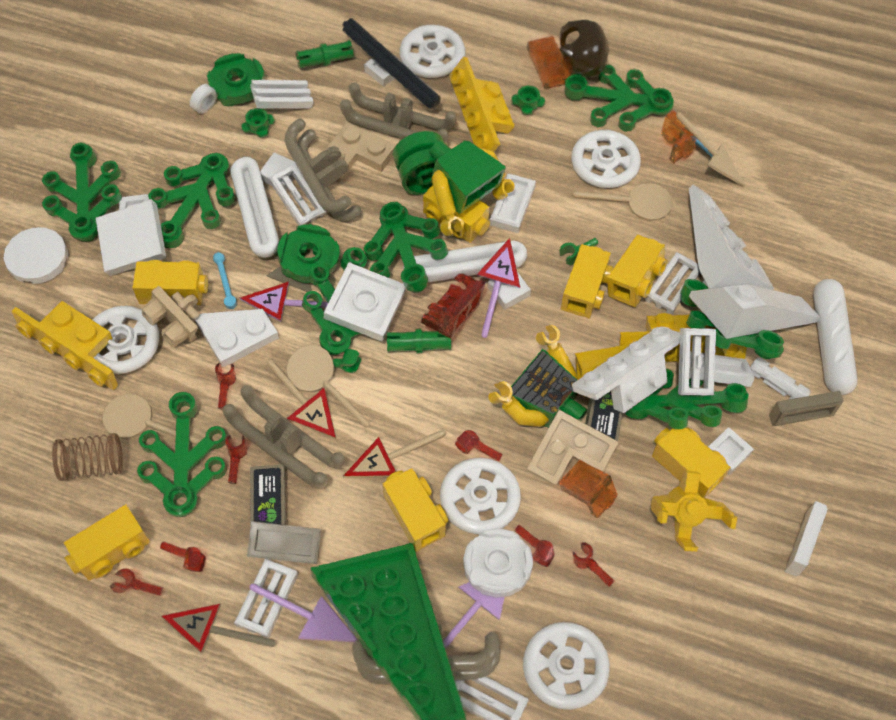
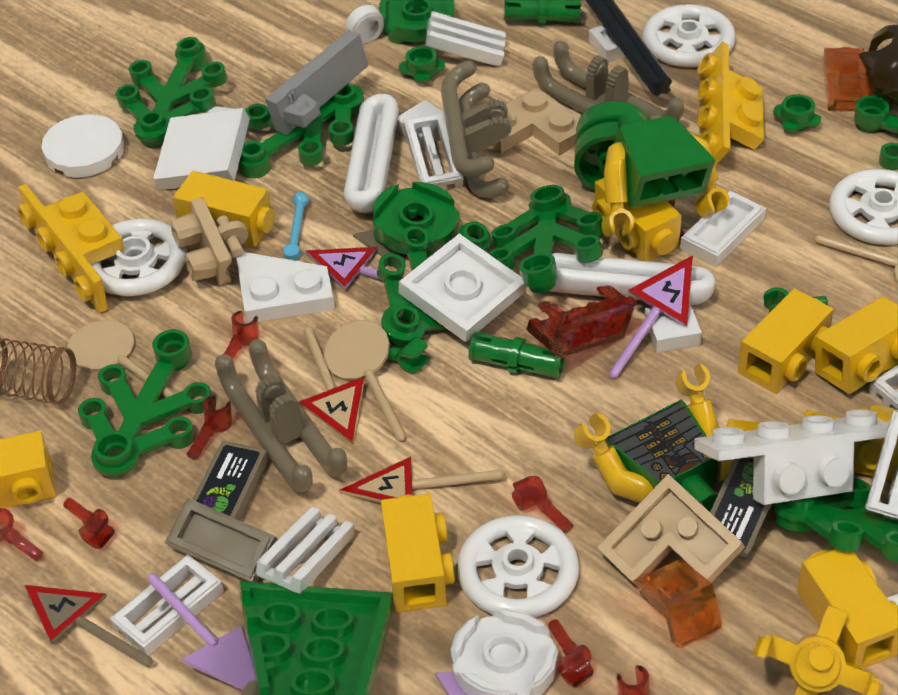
camera: 25 degrees right, 15 degrees down
(187, 180) = (306, 91): none -> light grey hinge
(347, 508) = (297, 547): none -> white tile

